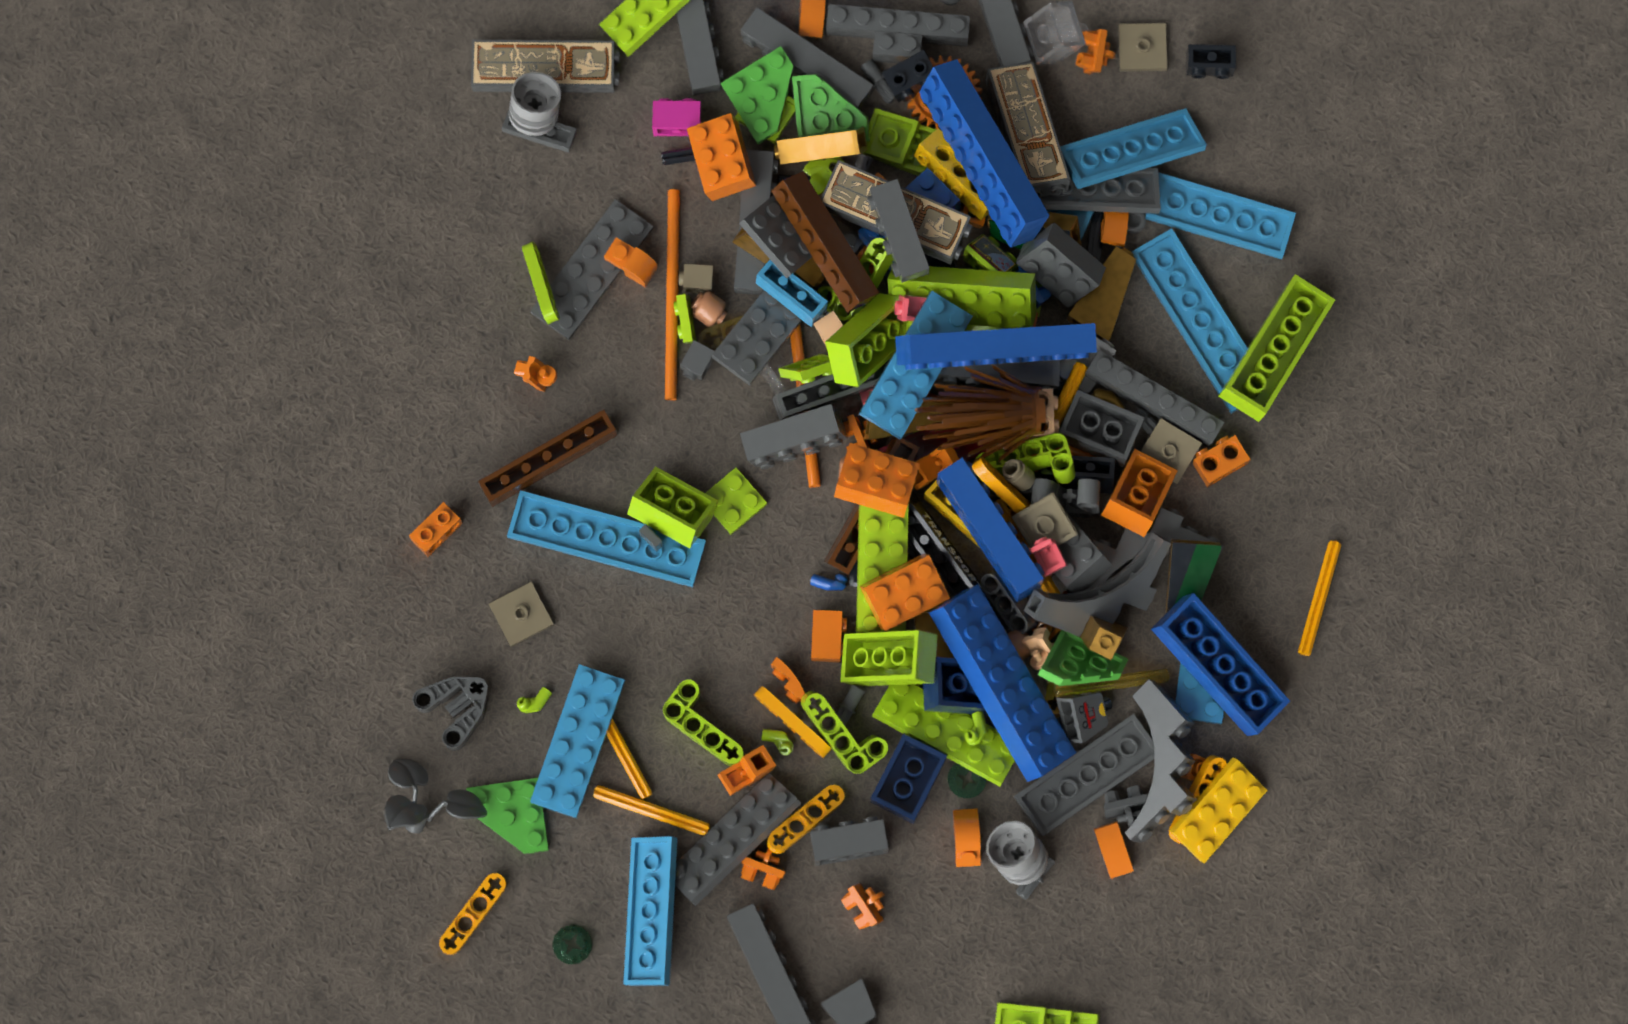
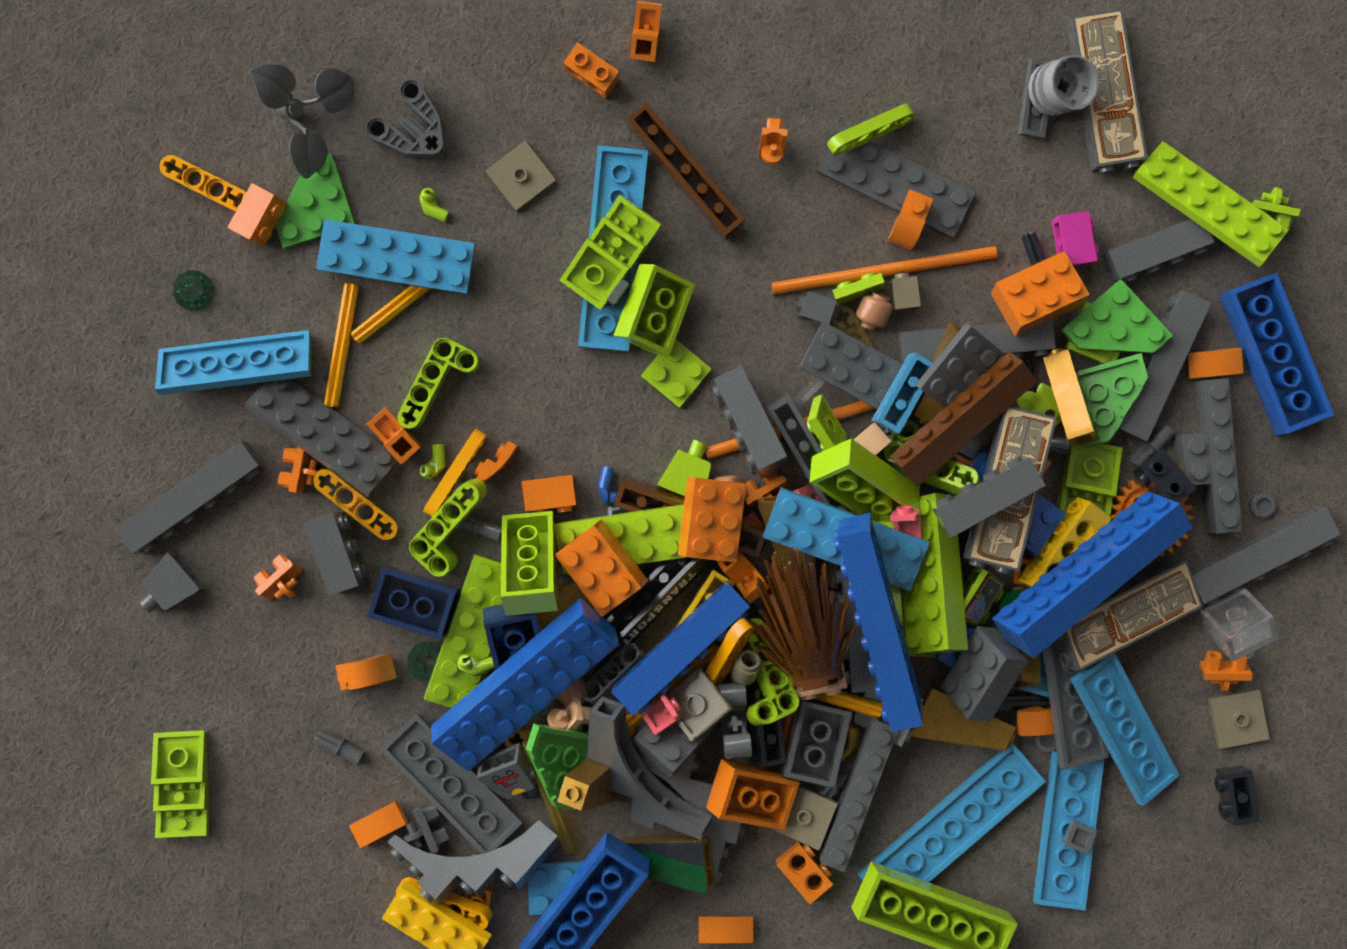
camera: 80 degrees right, 10 degrees up
(409, 473) = (646, 31): none -> orange brick
(514, 865) = (257, 215): none -> brick
(611, 539) = (610, 251): none -> lime slope
(825, 508) = (685, 465): none -> lime torso
(1017, 853) = (359, 715): light grey wheel -> none
(1226, 206) = (1079, 836): none -> dark grey plate
(1263, 542) = (725, 929): none -> orange slope

